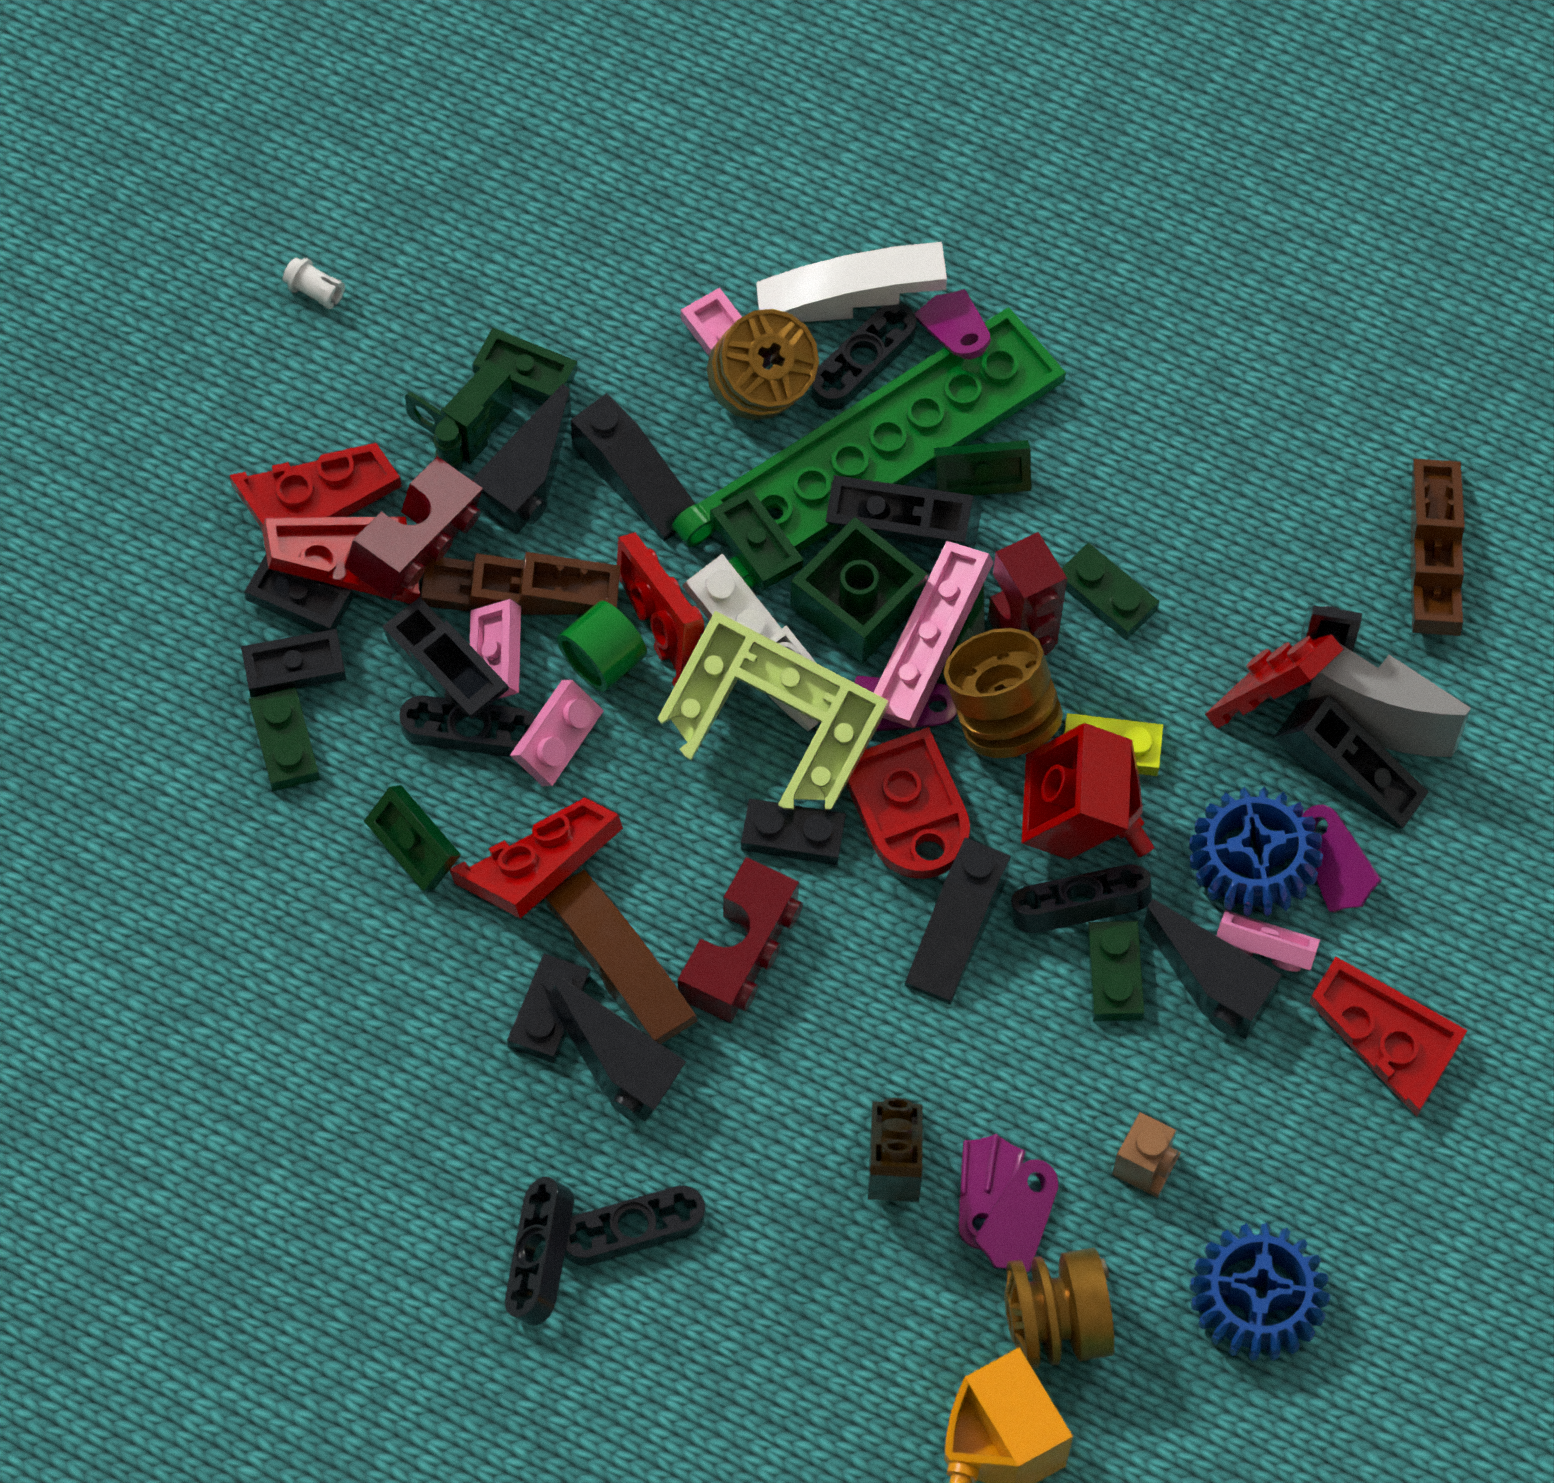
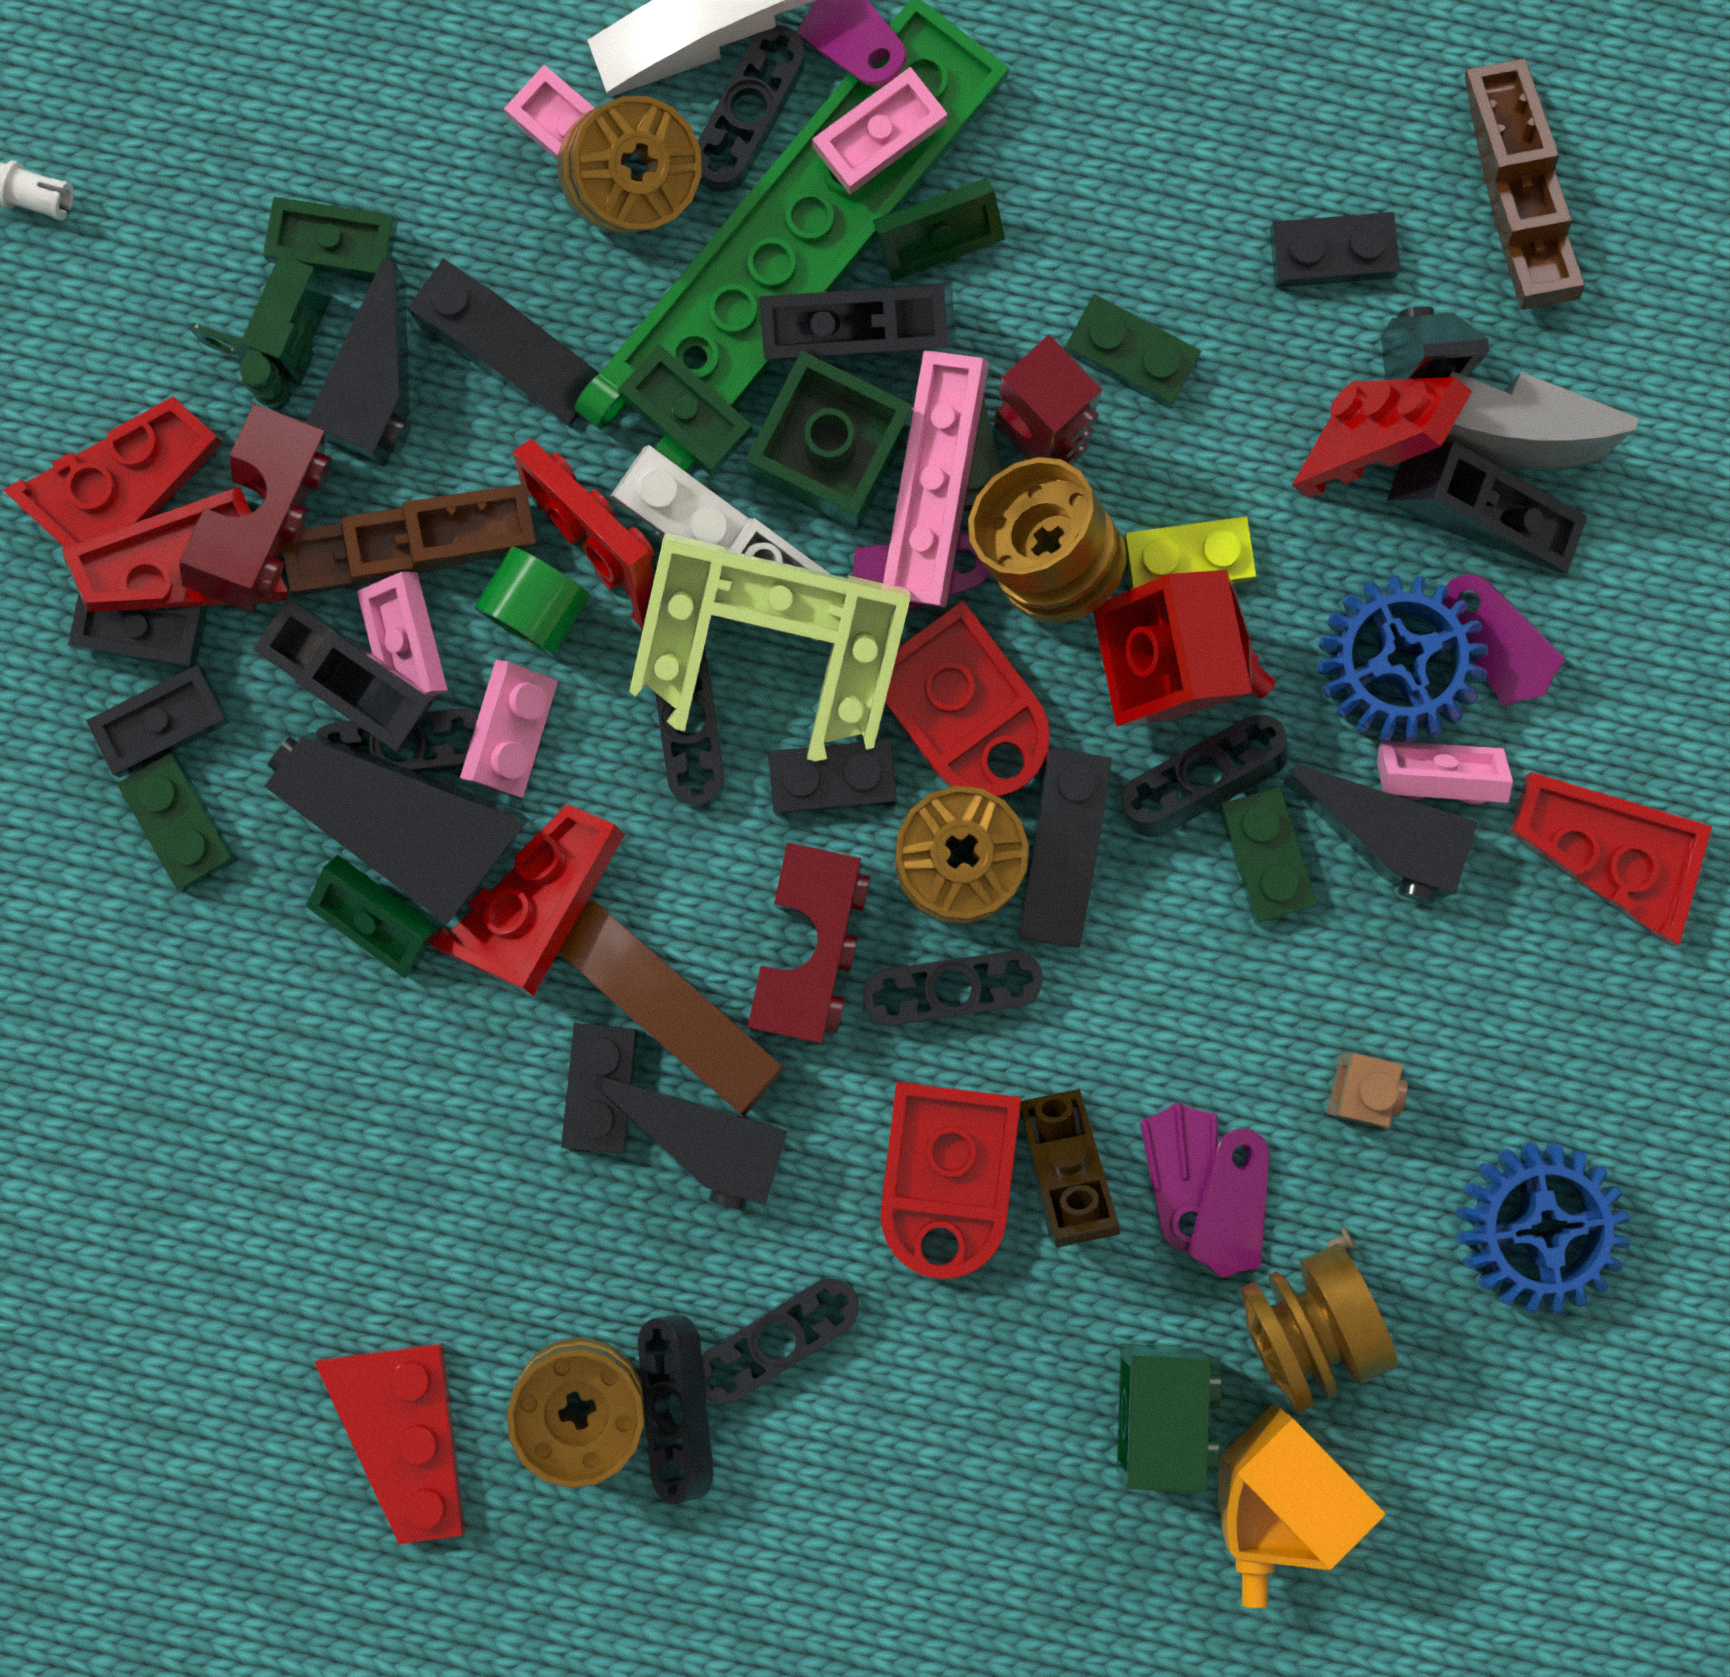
camera: 10 degrees left, 20 degrees up
(321, 1220) = (403, 1435): none -> red wing
(460, 774) = (399, 822): none -> black slope
(471, 1194) = (555, 1442): none -> pearl gold wheel
(703, 794) = (709, 761): none -> black beam
(803, 1133) = (948, 1171): none -> red plate
(806, 1016) = (996, 966): none -> black beam
(871, 925) = (965, 892): none -> pearl gold wheel
(917, 1352) = (1165, 1418): none -> dark green brick
(956, 387) = (880, 130): none -> bright pink plate
(1281, 558) = (1334, 249): none -> black plate

